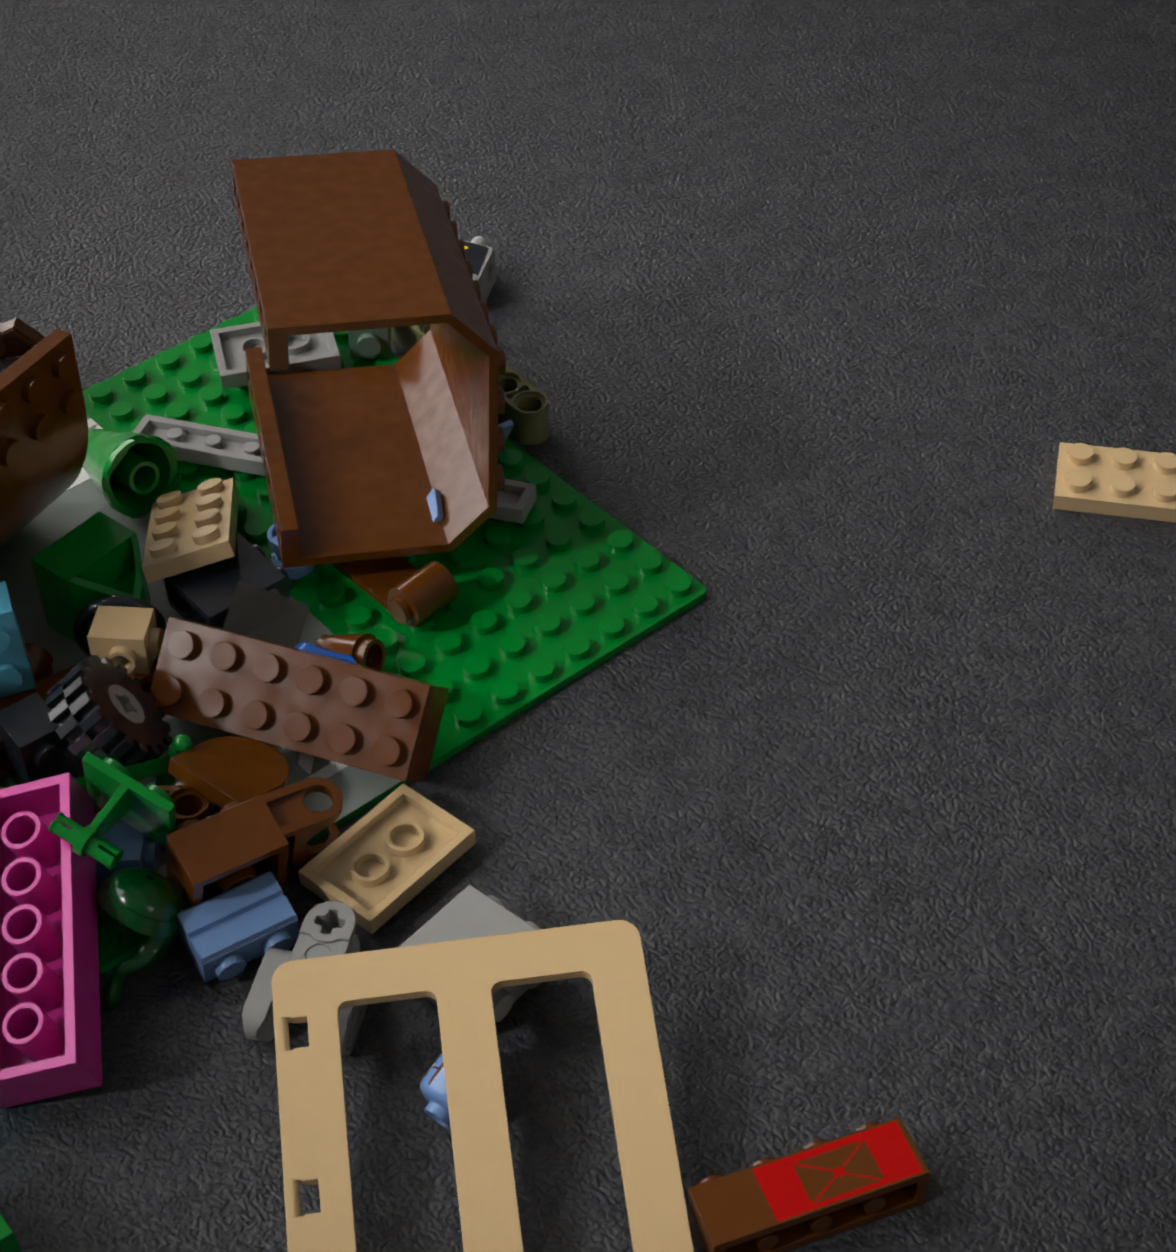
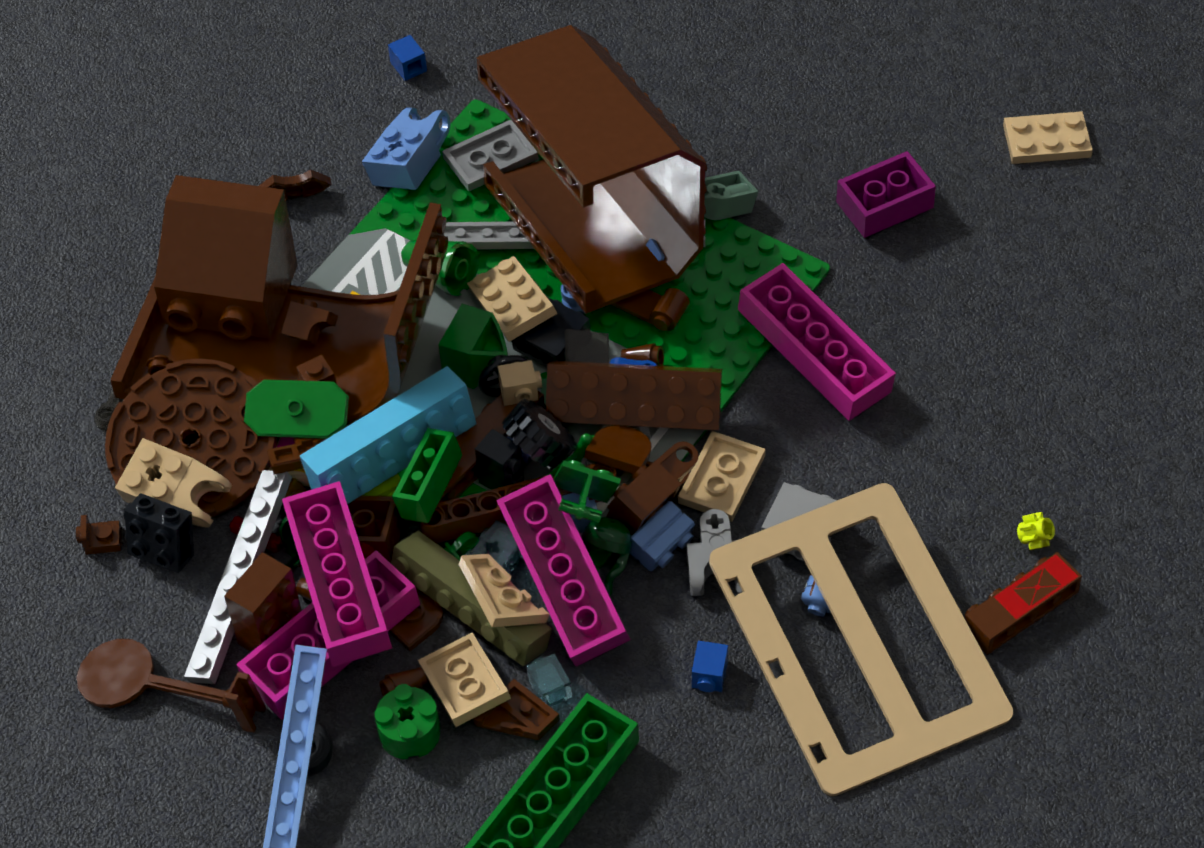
camera: 15 degrees left, 10 degrees up
(164, 321) = (407, 149): none -> medium blue brick
(208, 1166) = (709, 666): none -> blue brick
(228, 223) = (407, 57): none -> blue brick
(573, 458) = (729, 196): none -> sand green piece
(627, 688) = (816, 341): none -> dark pink brick
(829, 504) = (885, 194): none -> magenta brick
(879, 1072) = (1036, 531): none -> neon yellow gear

